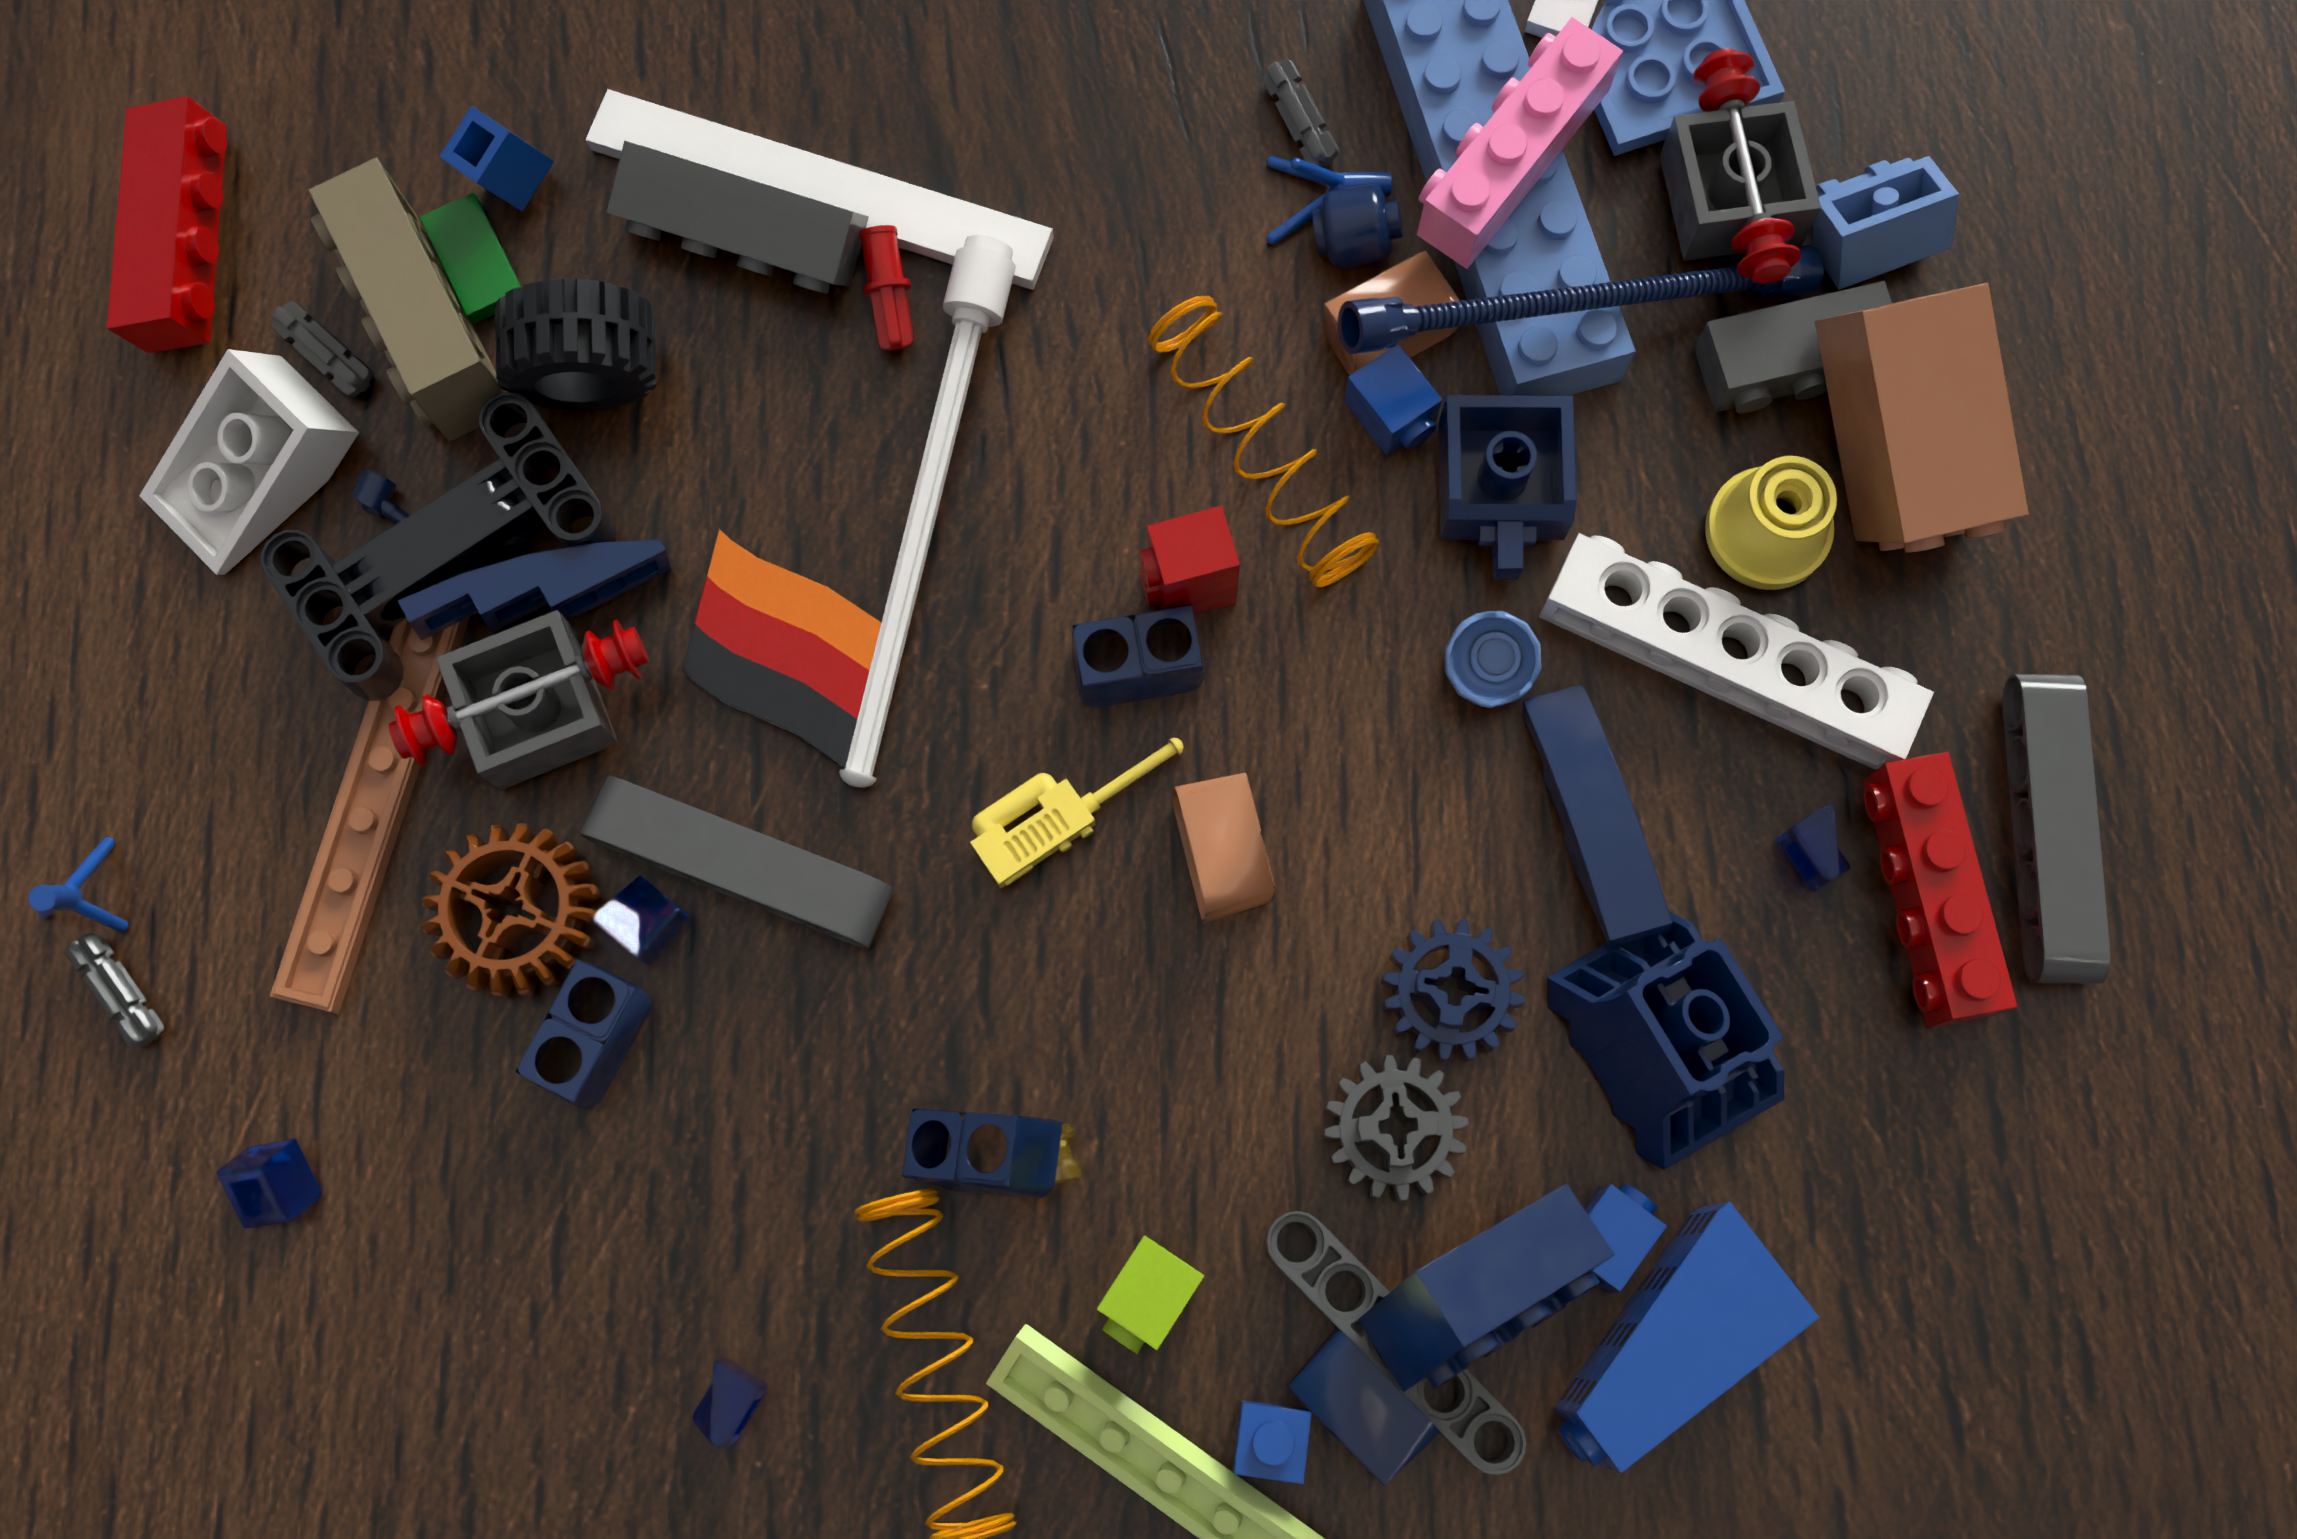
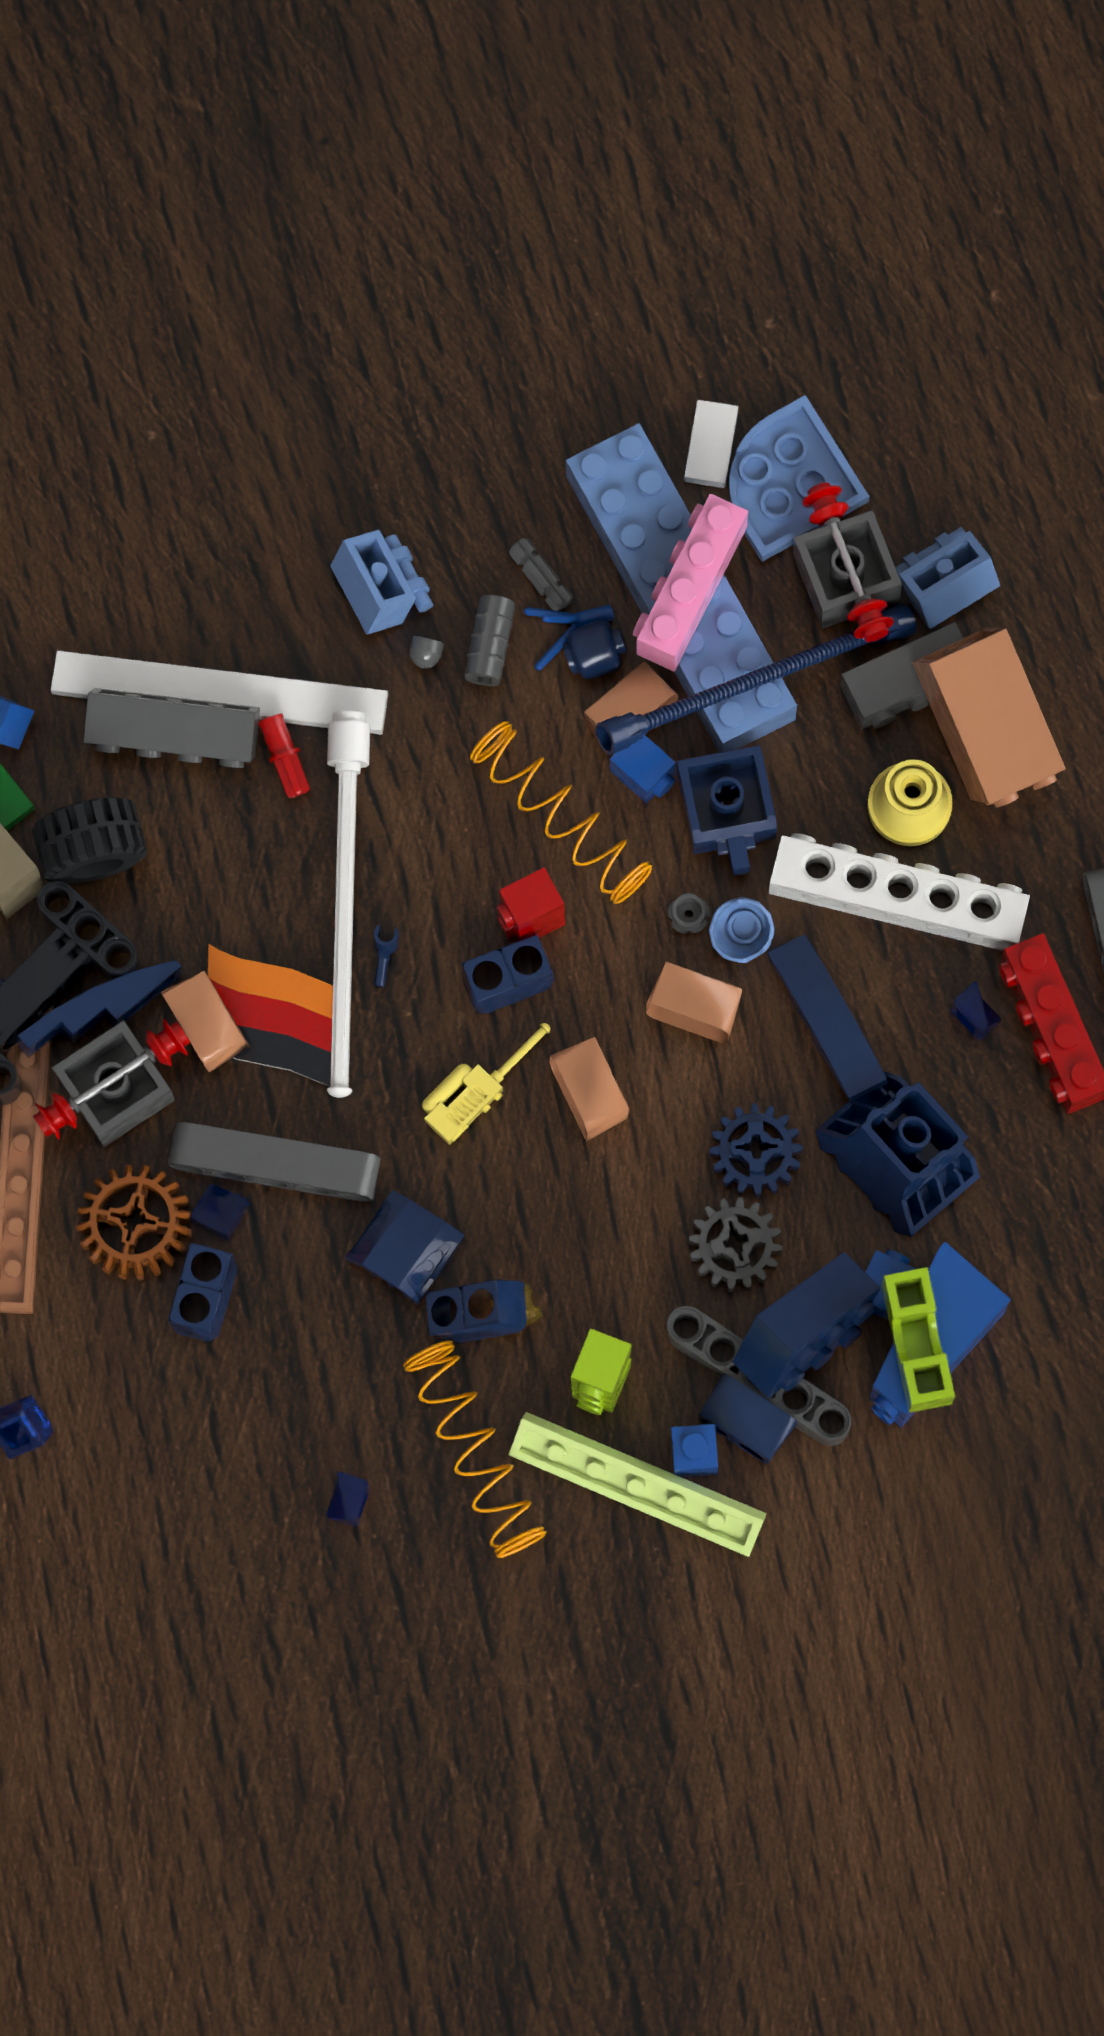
camera: 10 degrees left, 0 degrees up
(682, 635) = (205, 1020): none -> nougat piece
(900, 1029) = (406, 1246): none -> dark blue slope
(969, 588) = (384, 950): none -> dark blue hand
(1073, 74) = (379, 580): none -> medium blue brick
(1117, 185) = (425, 651): none -> dark grey hinge
(1210, 187) = (489, 640): none -> dark grey axle
(1403, 751) = (694, 1002): none -> nougat piece
(1418, 606) = (691, 903): none -> dark grey plate
(1666, 1407) = (916, 1340): none -> lime arch

